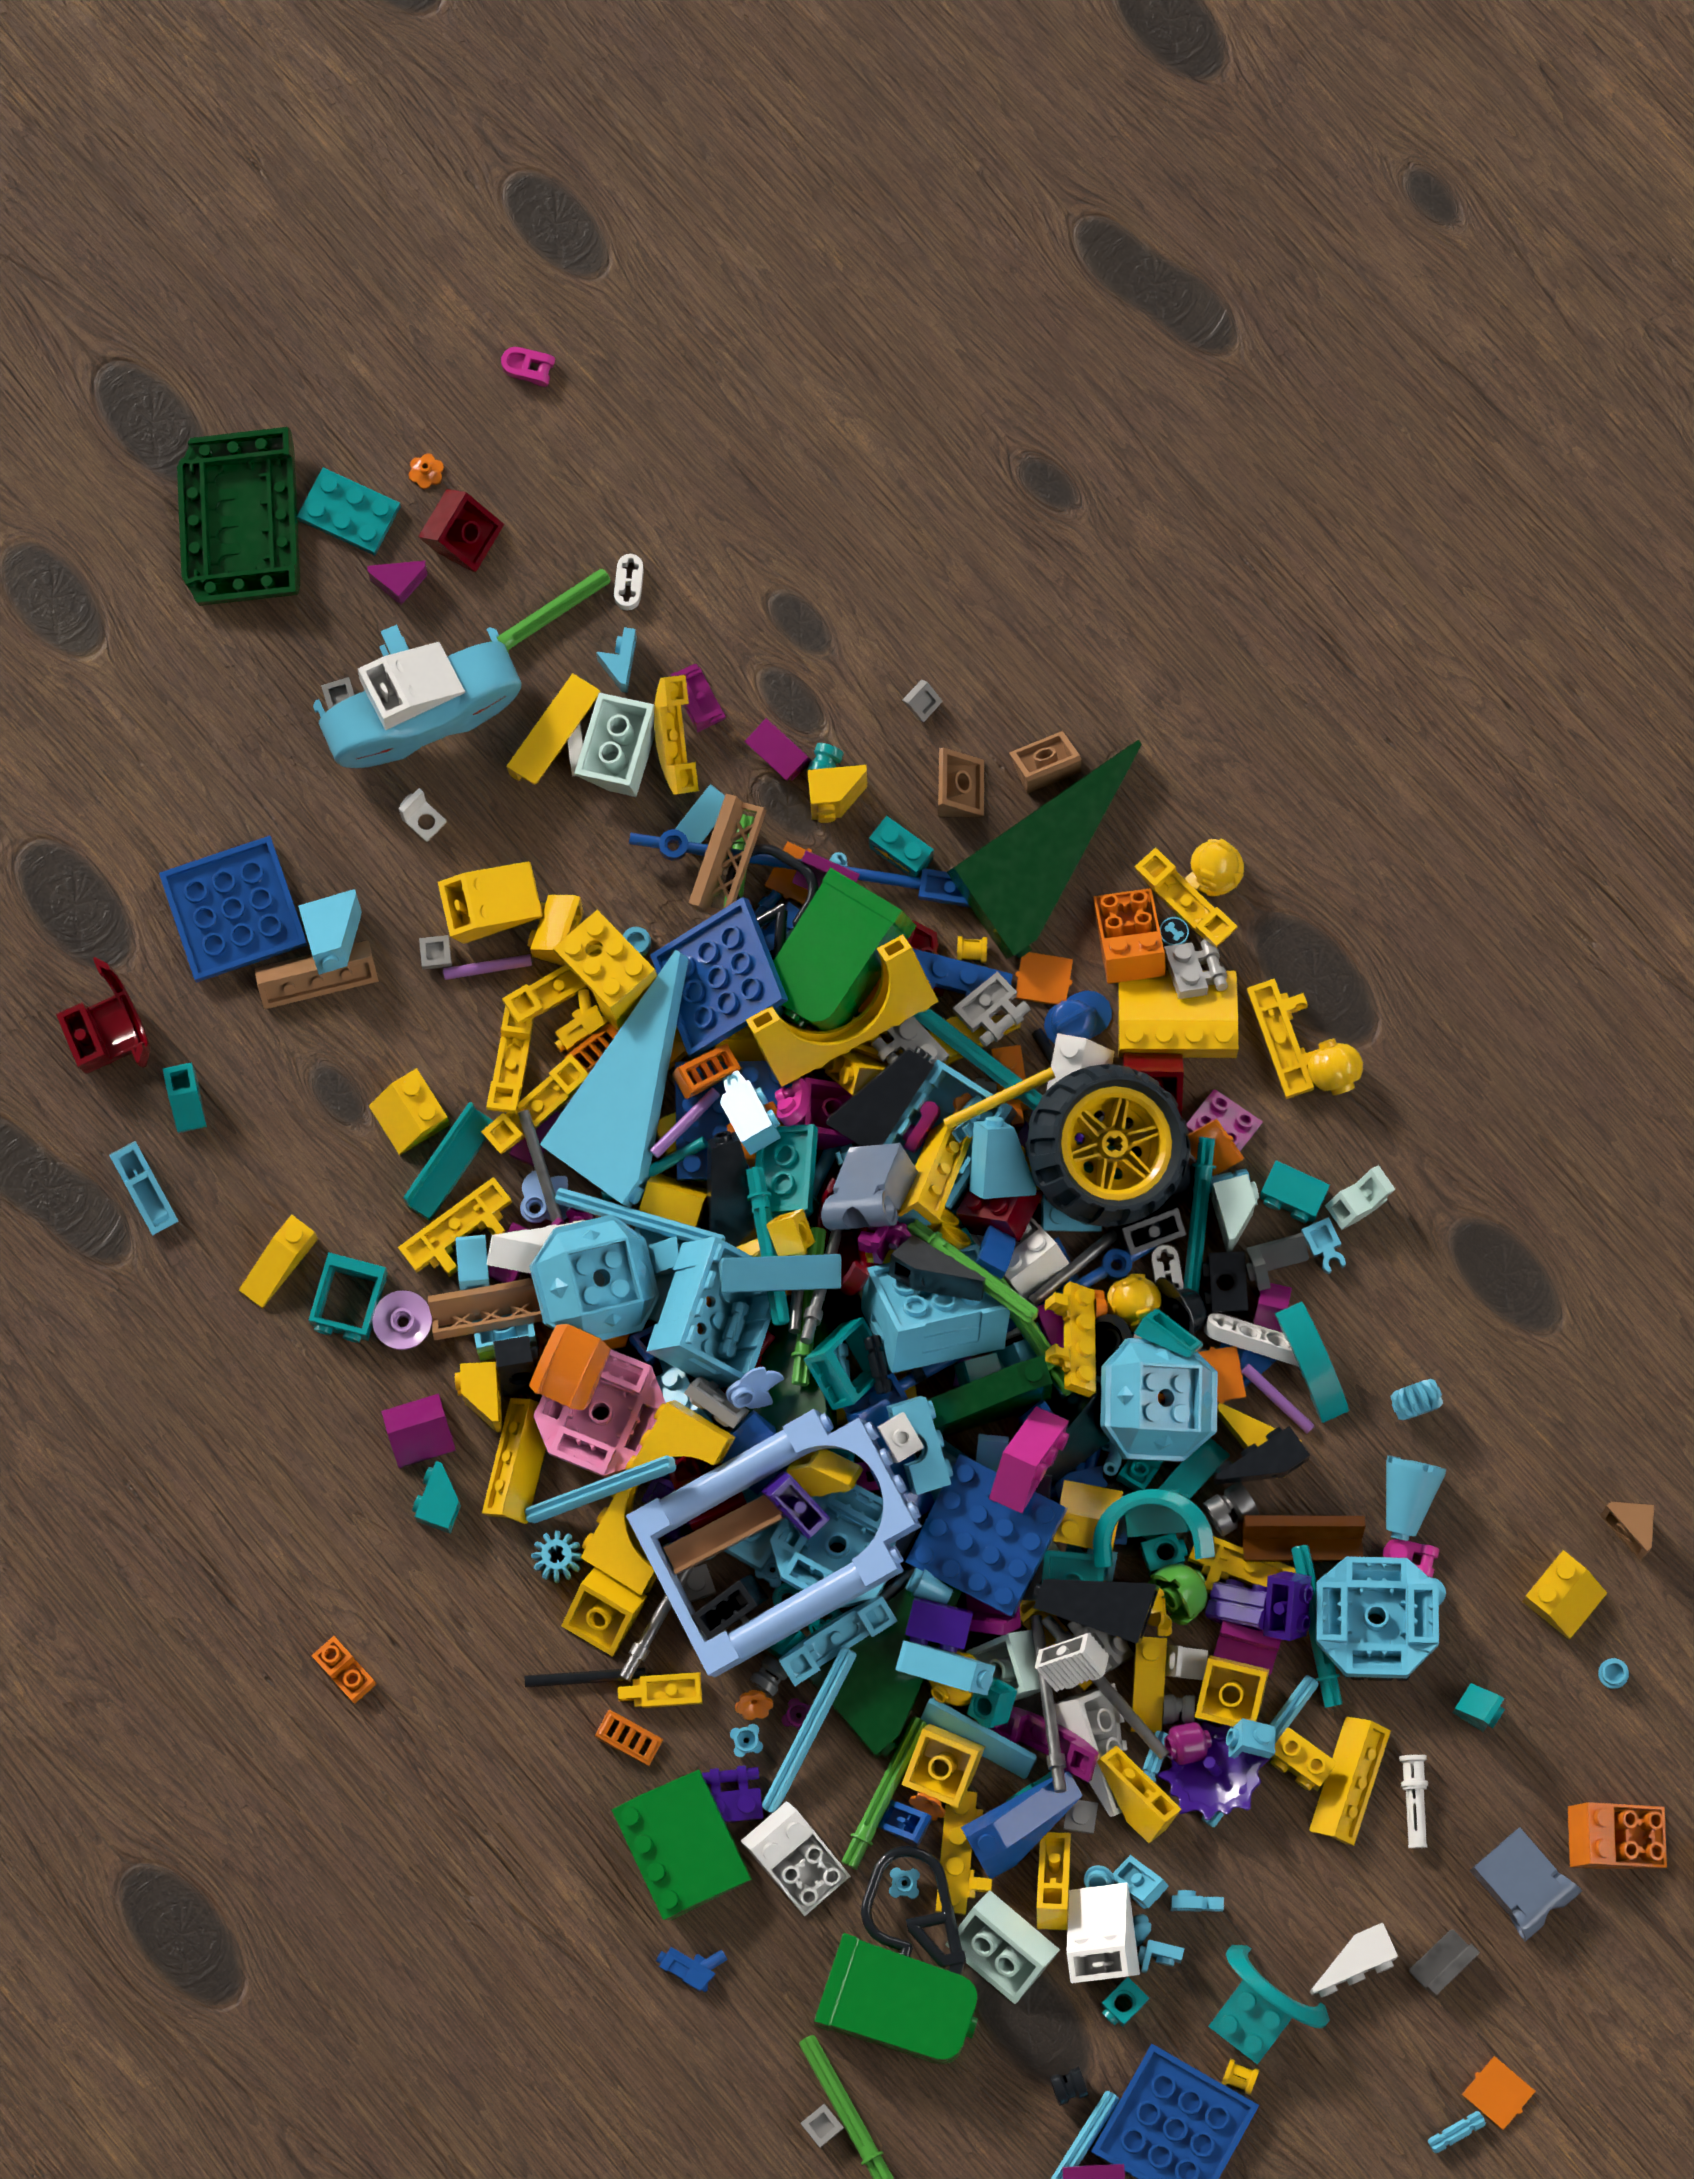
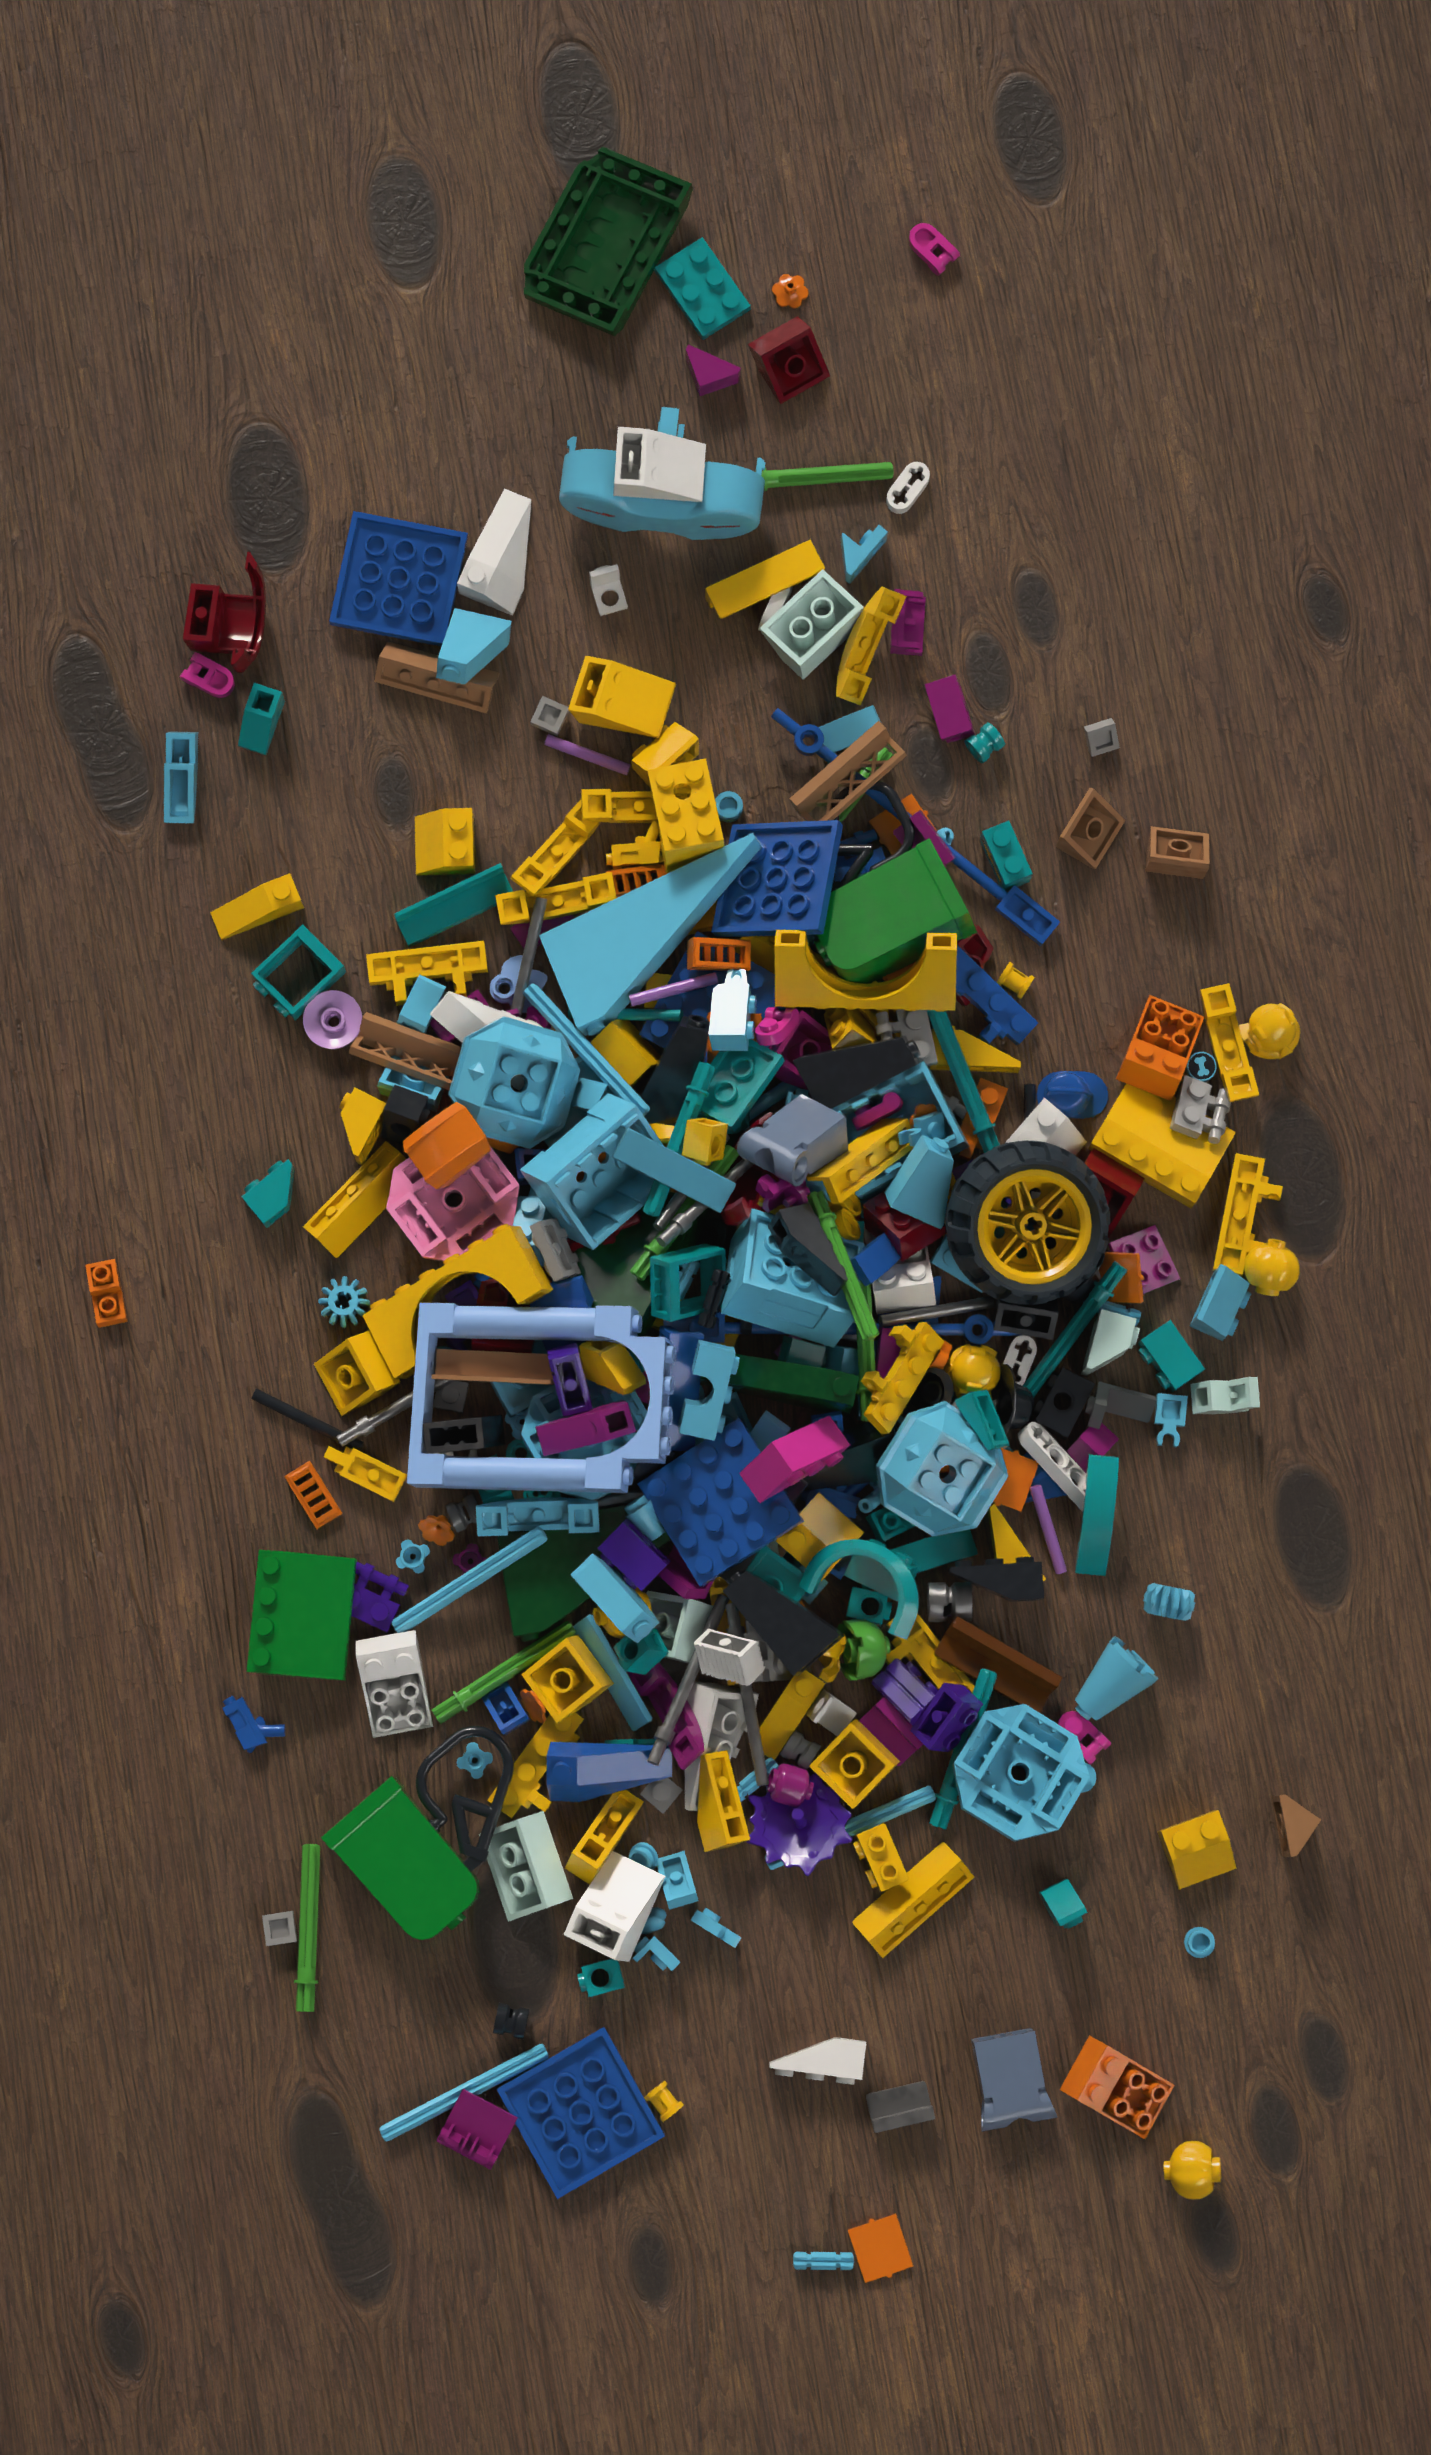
camera: 25 degrees right, 5 degrees up
(126, 1087) = (217, 681): none -> dark pink plate
(311, 845) = (499, 558): none -> white wedge
(337, 691) = (599, 439): light grey plate -> none
(418, 1430) = (290, 1123): magenta slope -> none
(600, 1489) = (412, 1267): medium azure axle -> none
(733, 1330) = (608, 1194): medium azure axle -> none
(753, 1388) = (593, 1257): light blue plate -> none
(835, 790) = (977, 773): yellow slope -> none
(835, 1537) = (586, 1428): none -> magenta slope
(900, 1437) = (692, 1375): white bracket -> none
(985, 1003) = (999, 1034): light grey plate -> none
(999, 1098) = (957, 1126): yellow bar -> none
(1026, 868) = (1102, 937): dark green slope -> none
(1043, 978) = (1063, 1041): orange piece -> none
(1251, 1738) = (846, 1815): medium azure bracket -> none
(1258, 2010) = (709, 2056): teal piece -> none
(1309, 1122) = (1220, 1303): none -> medium azure slope
(1417, 1783) = (971, 1937): white pin -> none

